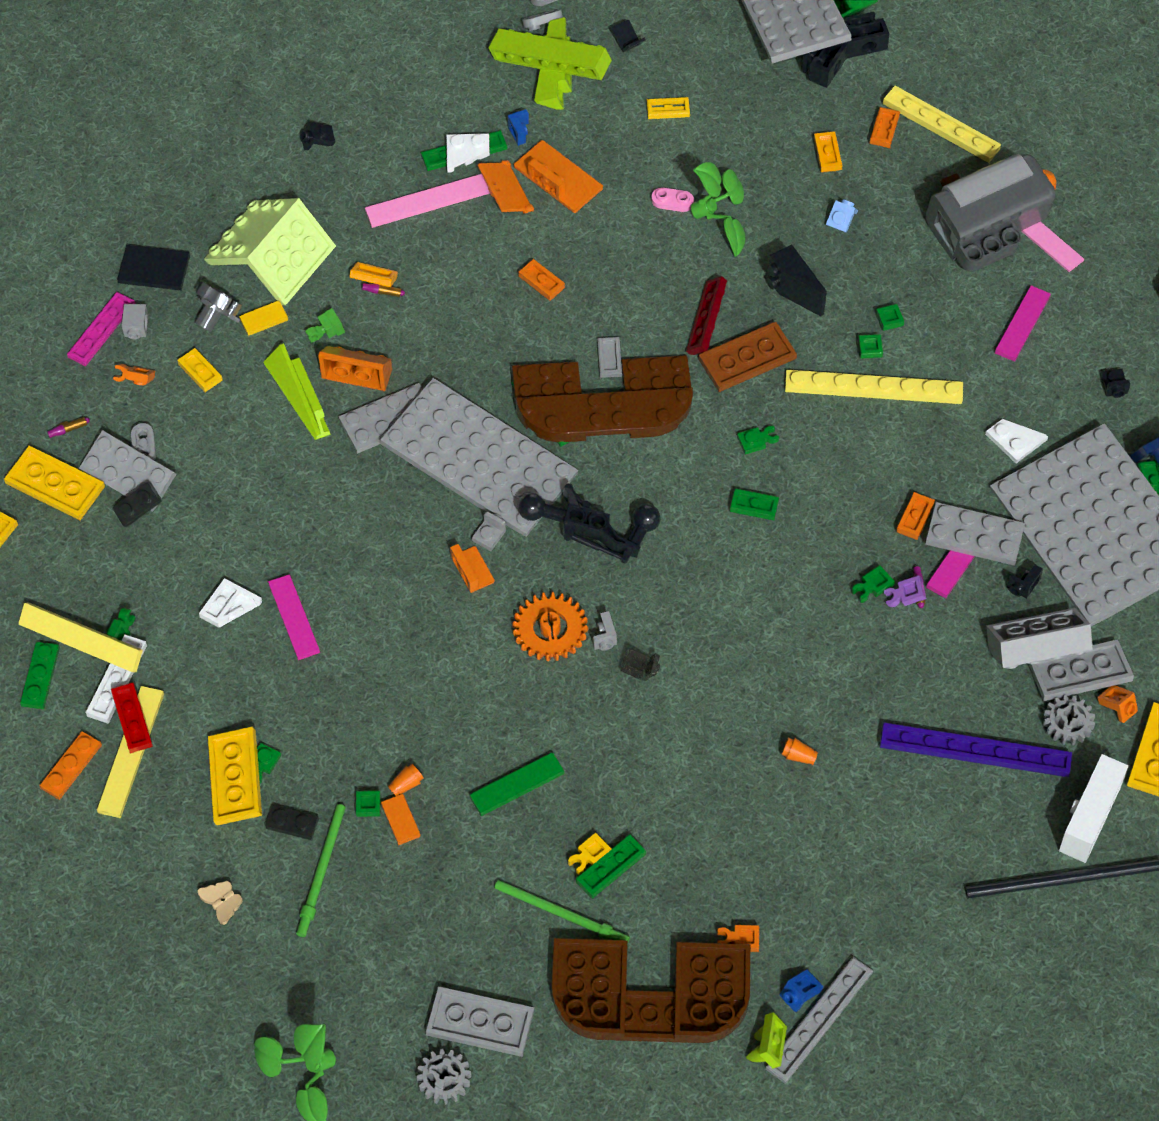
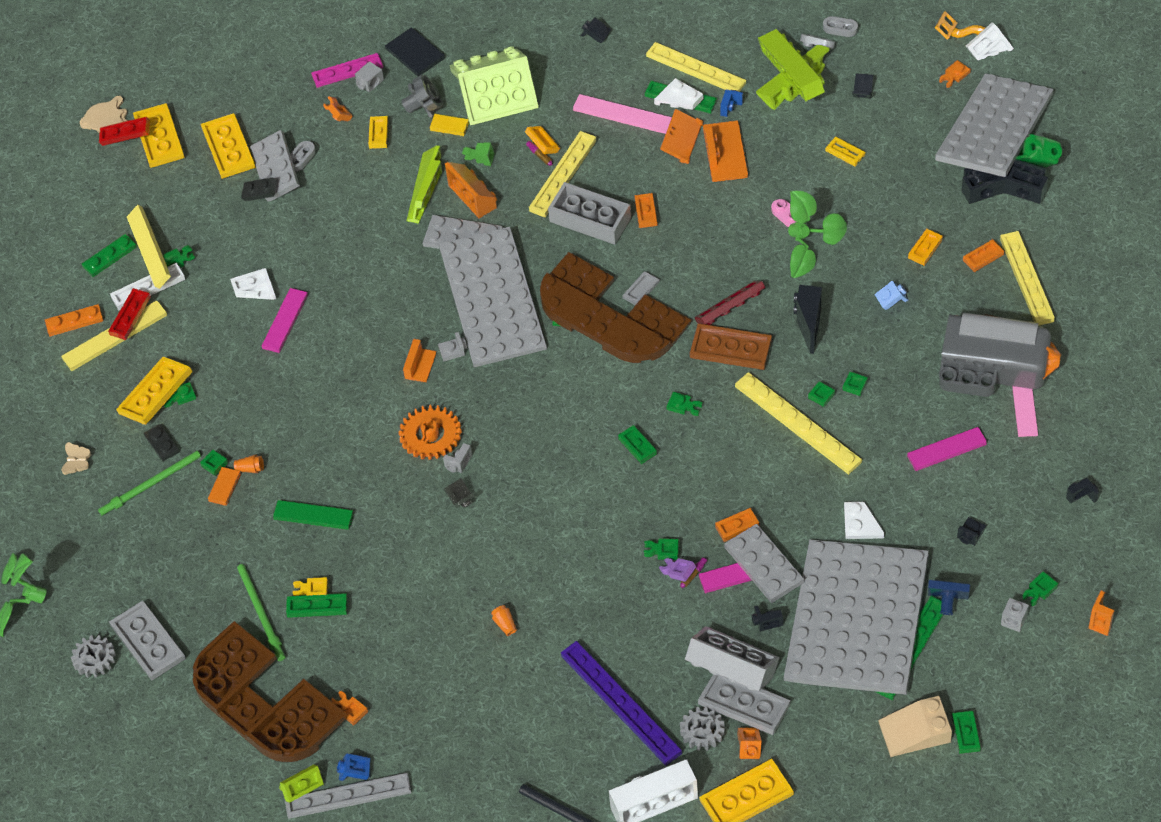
camera: 45 degrees right, 5 degrees down
(66, 426) = (269, 117): piece -> none
(427, 295) = (563, 172): none -> light yellow plate
(450, 114) = (695, 67): none -> light yellow tile
(495, 315) = (589, 213): none -> light grey brick
(645, 519) = (555, 404): black piece -> none

